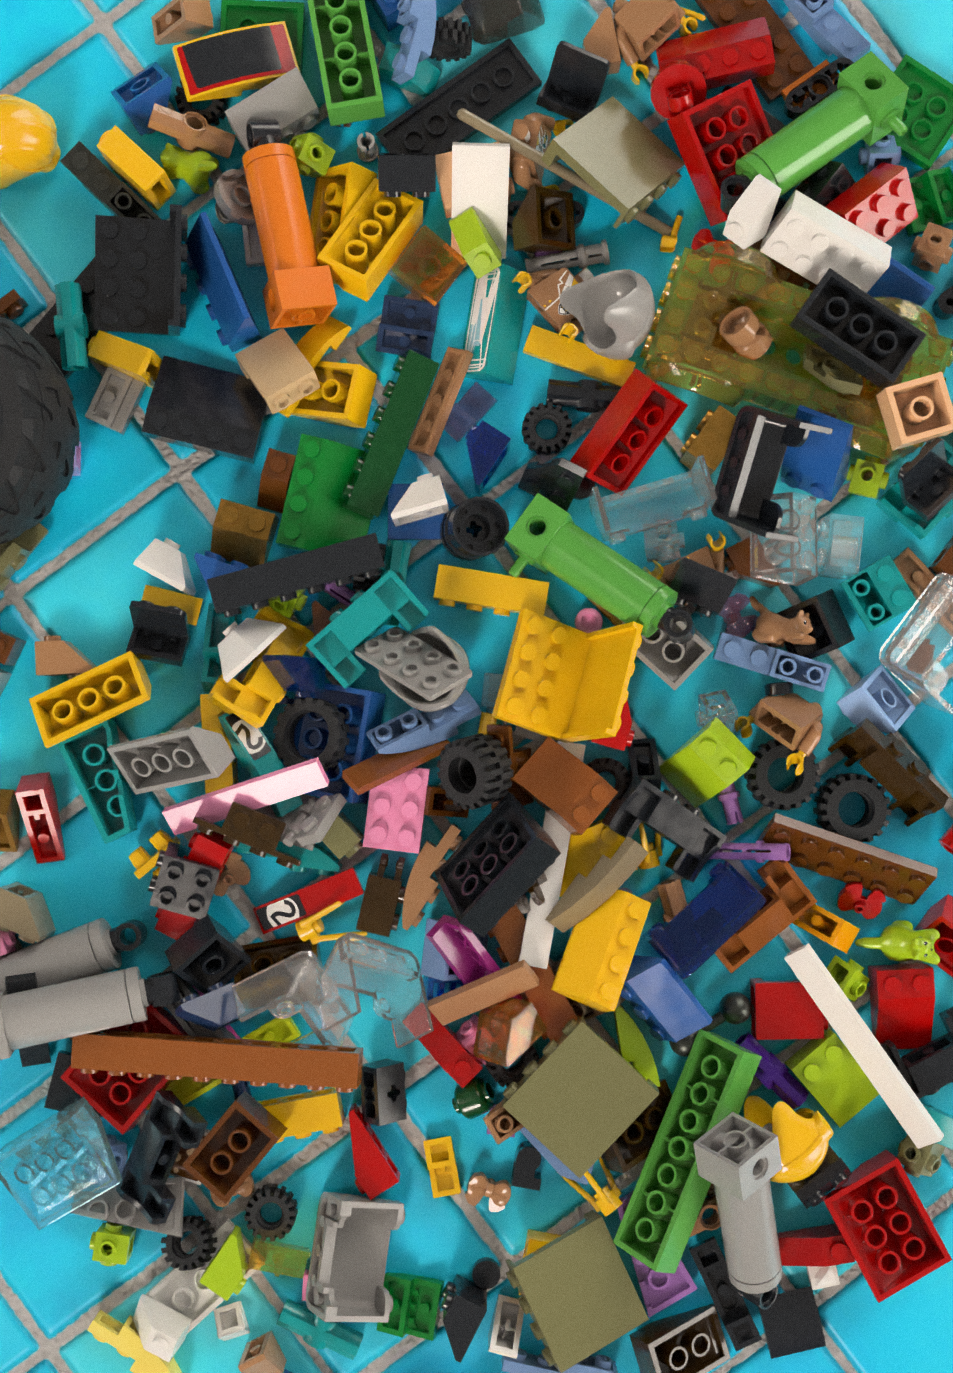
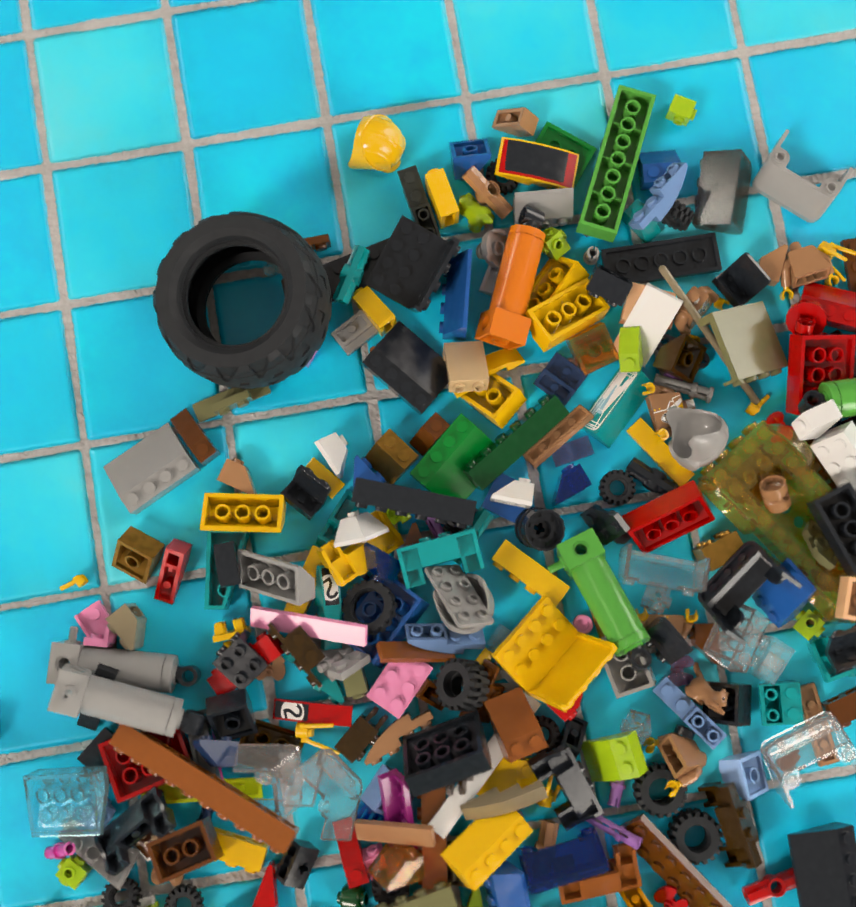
camera: 30 degrees right, 5 degrees down
(82, 1227) = (60, 850): none -> dark pink pin
(103, 773) = (226, 564): none -> black slope

